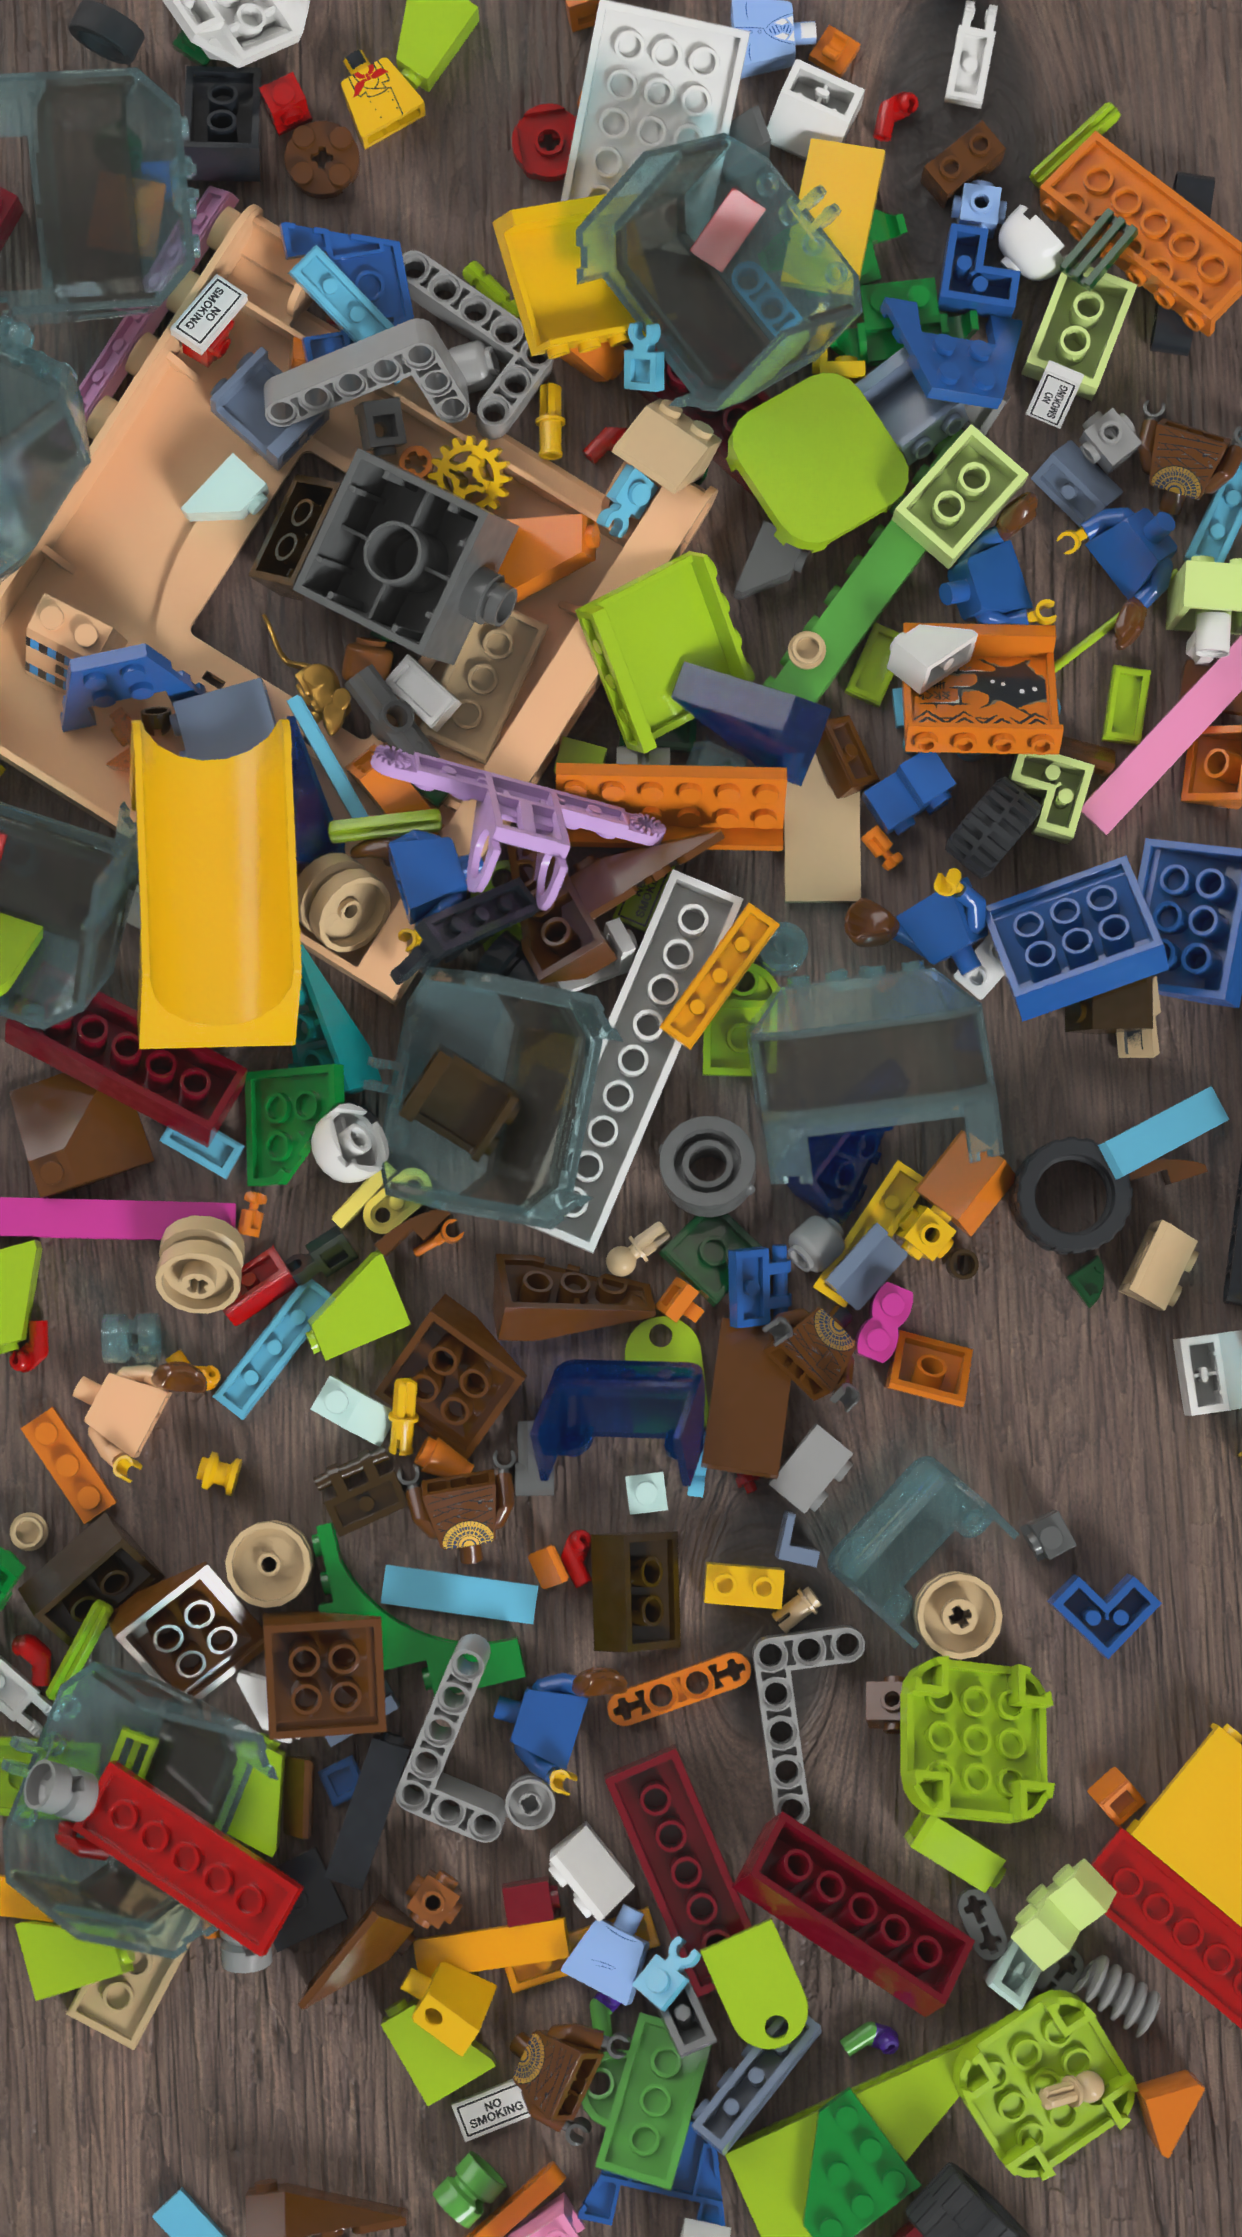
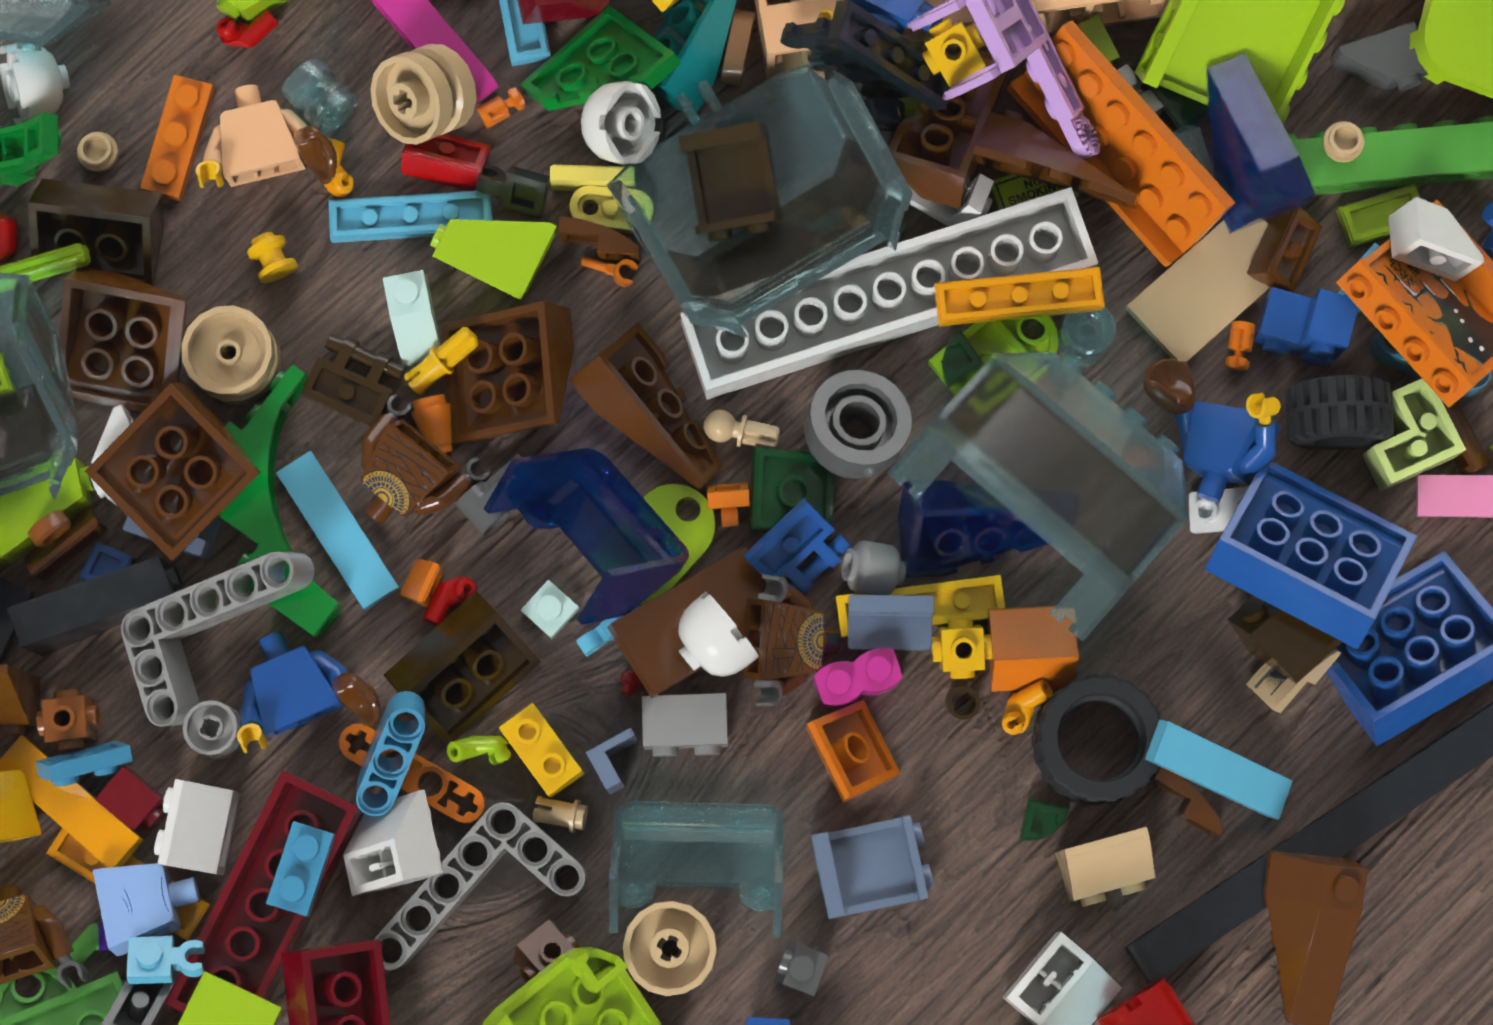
camera: 55 degrees right, 5 degrees down
(286, 1798) = (49, 528): none -> dark orange tile
(358, 1007) = (738, 47): none -> medium nougat beam
(478, 1903) = (100, 759): none -> dark azure plate
(516, 873) = (958, 66): none -> yellow brick
(669, 1705) = (385, 771): none -> dark azure beam
(686, 1824) = (301, 869): none -> dark azure plate
(699, 1625) = (475, 746): none -> lime arm
(721, 1746) = (393, 847): none -> white slope
(722, 1053) = (959, 360): none -> dark green tile
(775, 1402) = (713, 639): none -> white cylinder
(999, 1224) = (1022, 705): none -> light orange arm
(1019, 1426) = (871, 866): none -> sand blue panel

